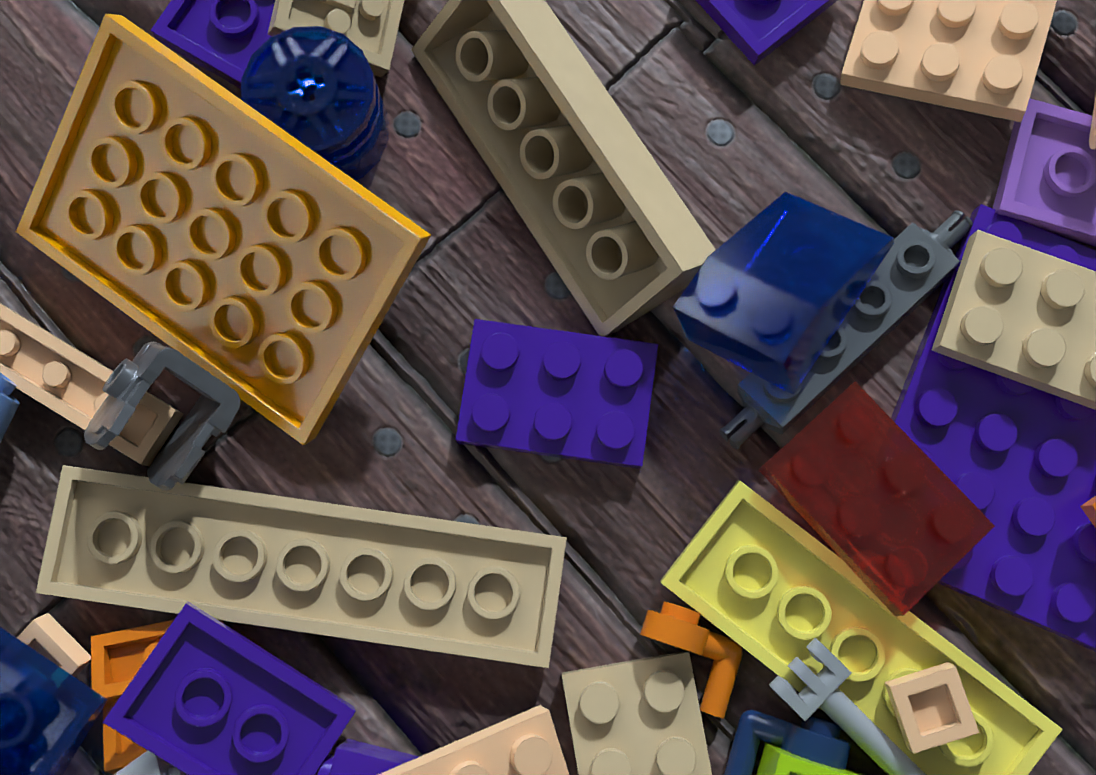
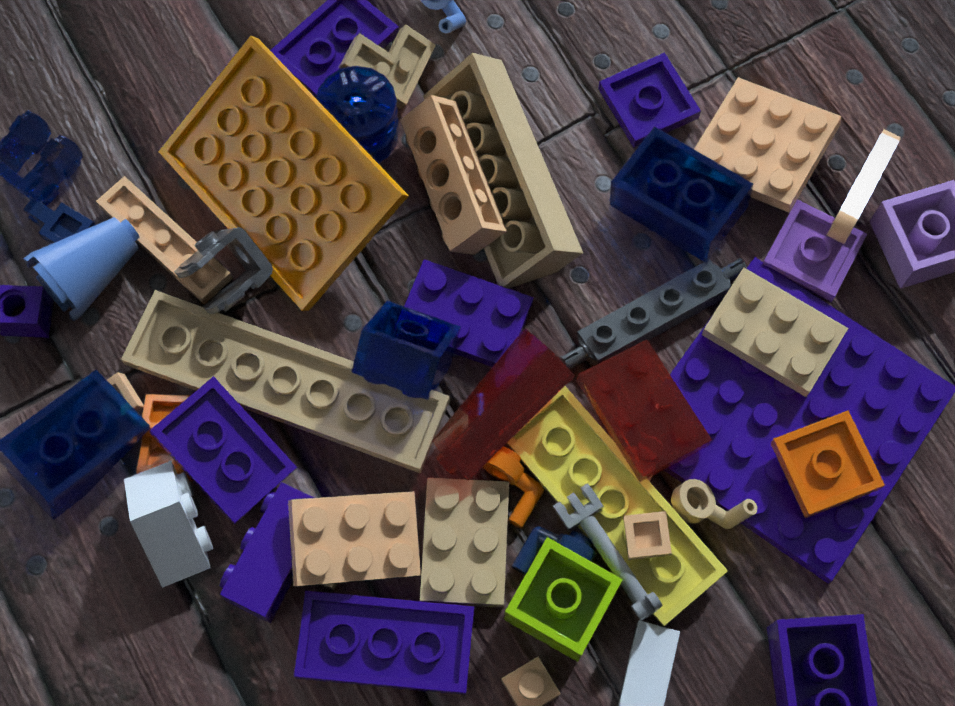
camera: 10 degrees right, 10 degrees down
(482, 486) = (405, 350): none -> clear blue brick
(488, 173) = (452, 175): none -> light nougat brick
(654, 538) = (501, 405): none -> clear red slope
(781, 288) = (614, 278): clear blue slope -> none
(853, 129) = (680, 194): none -> clear blue brick
(983, 624) = (704, 505): none -> tan plate

